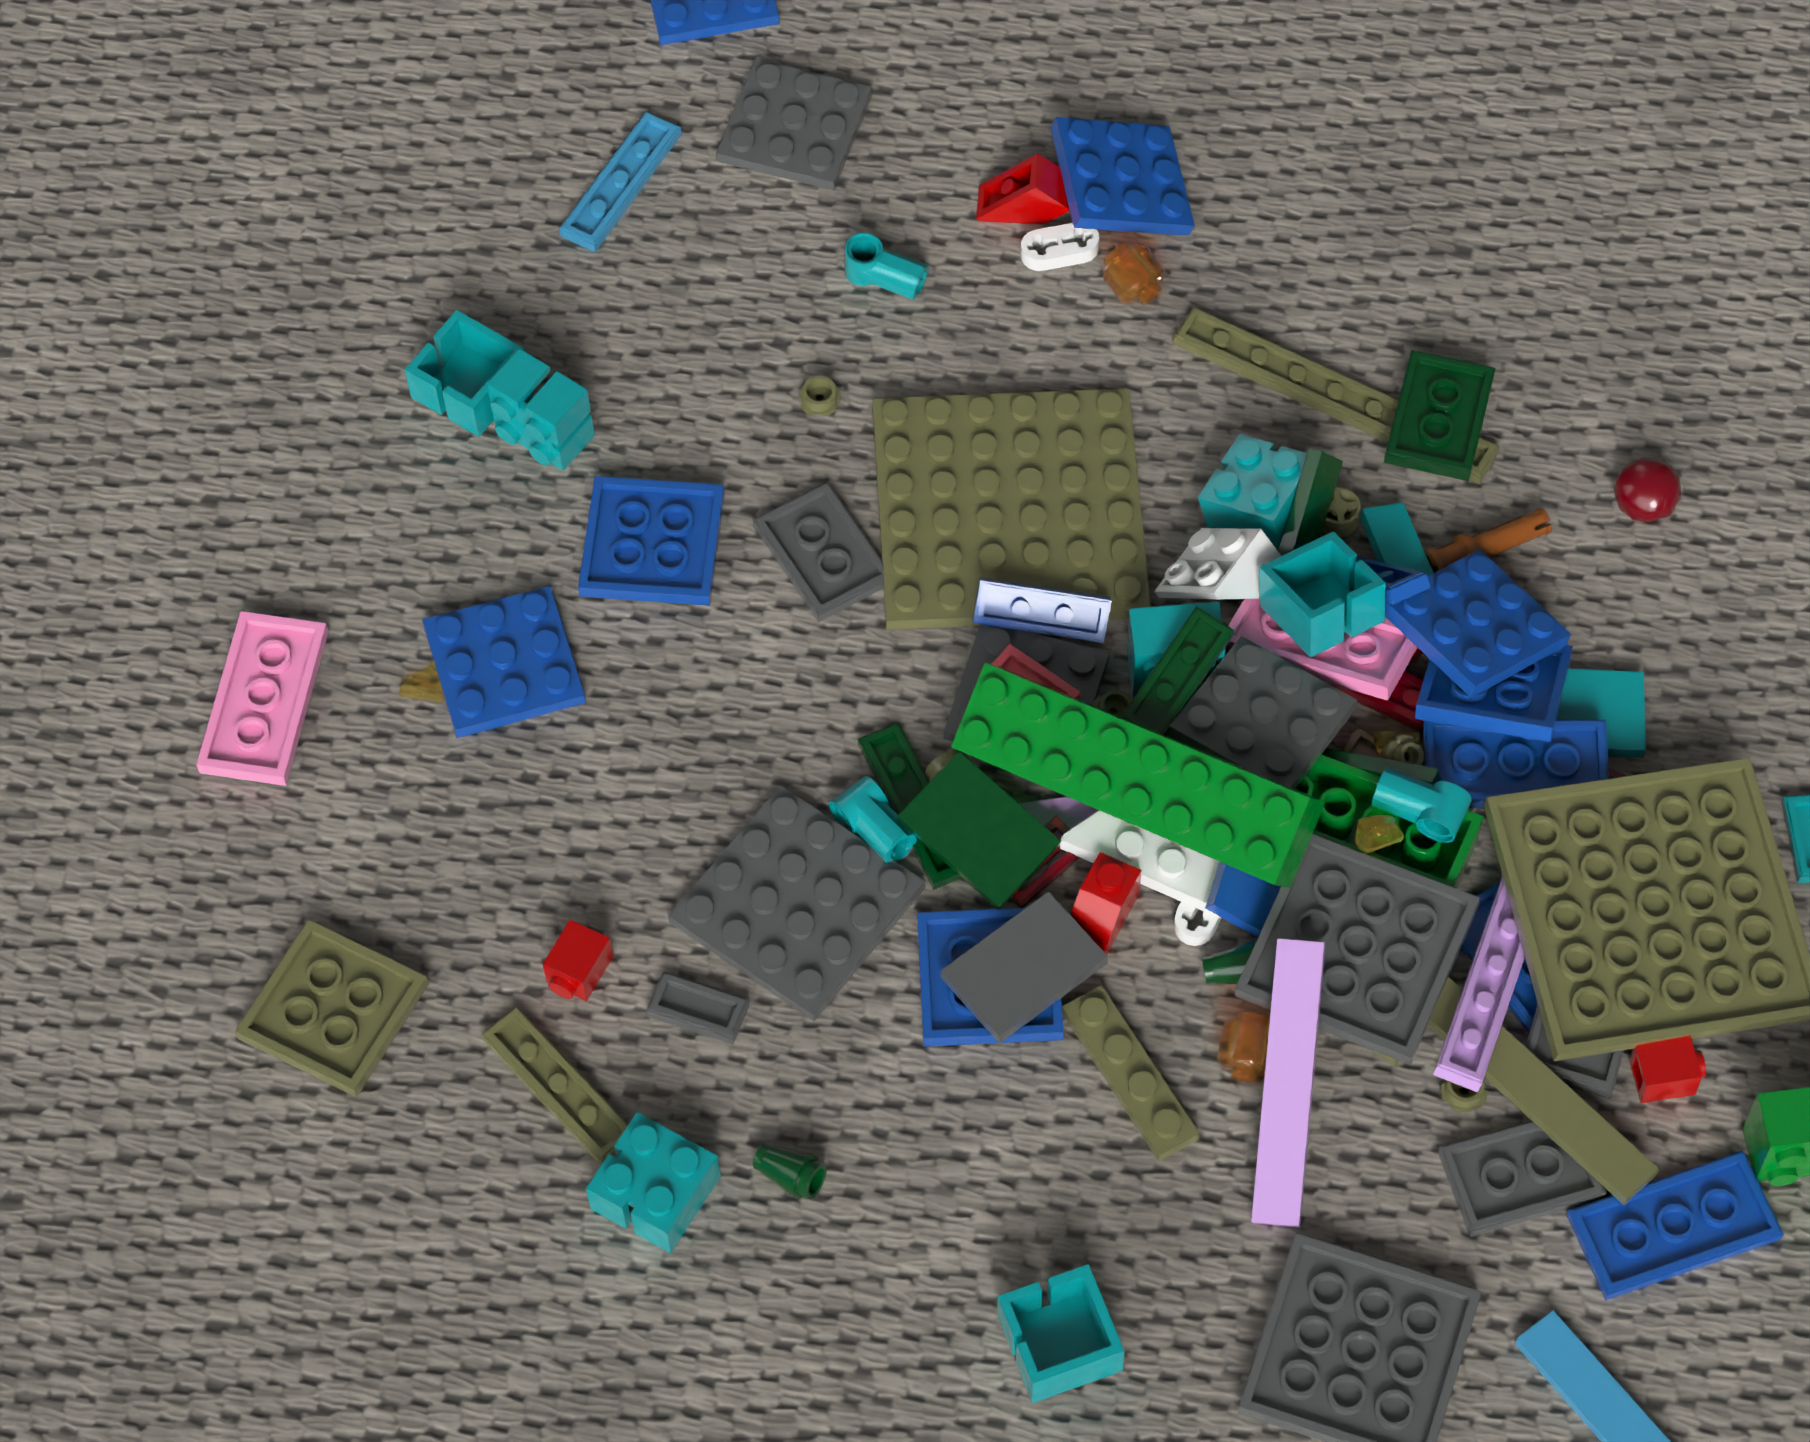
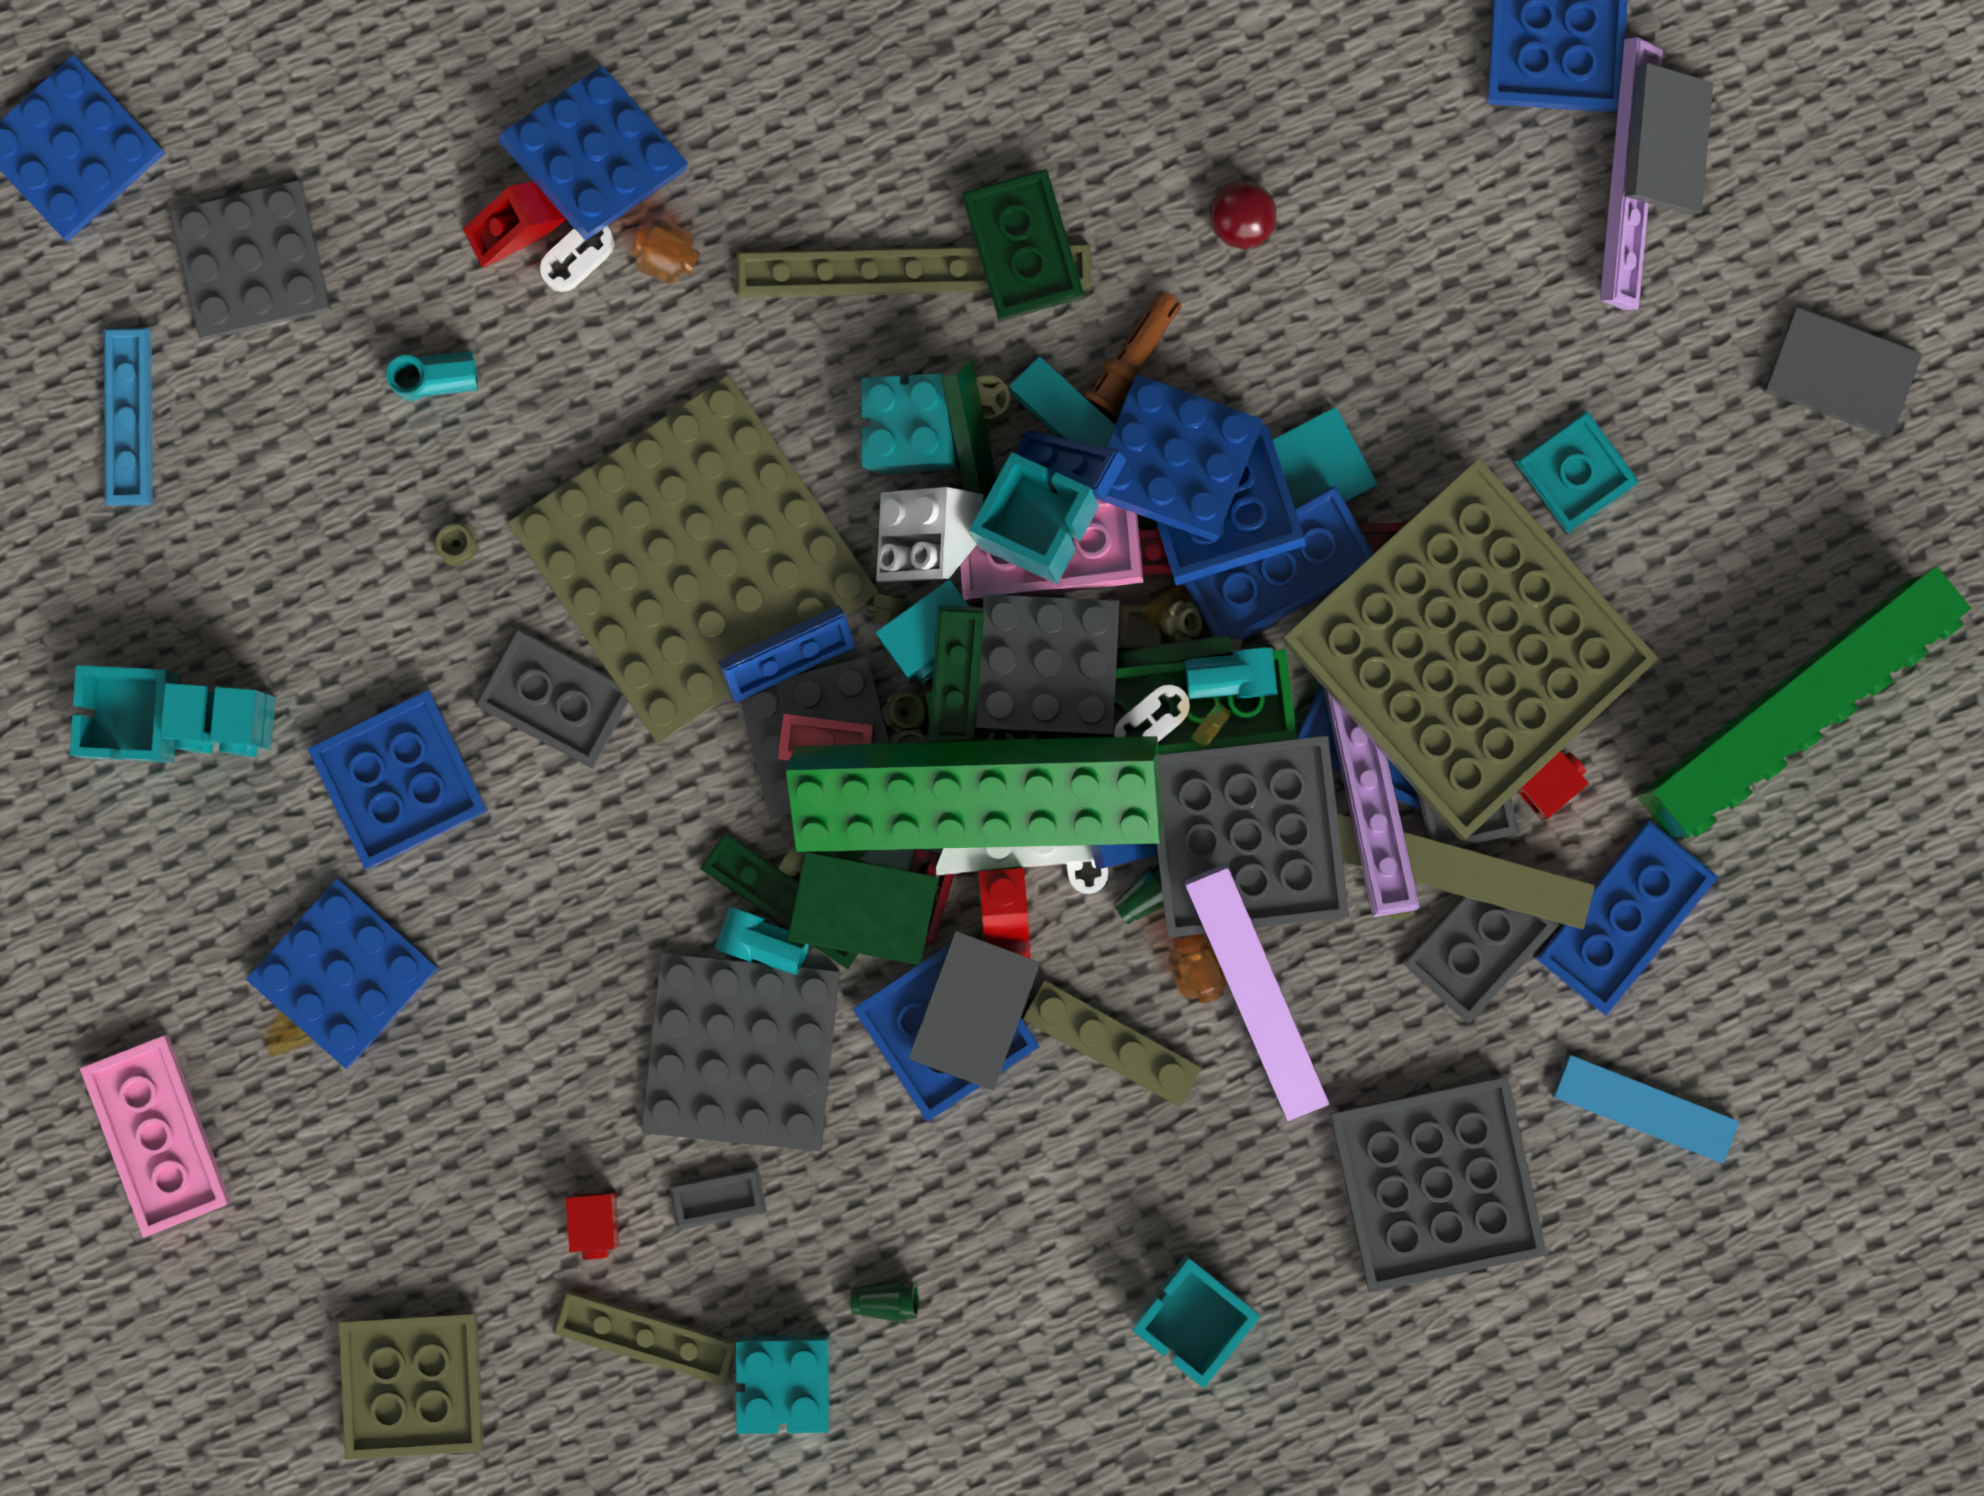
camera: 30 degrees left, 25 degrees up
(1335, 811) = (1148, 707): none -> white beam

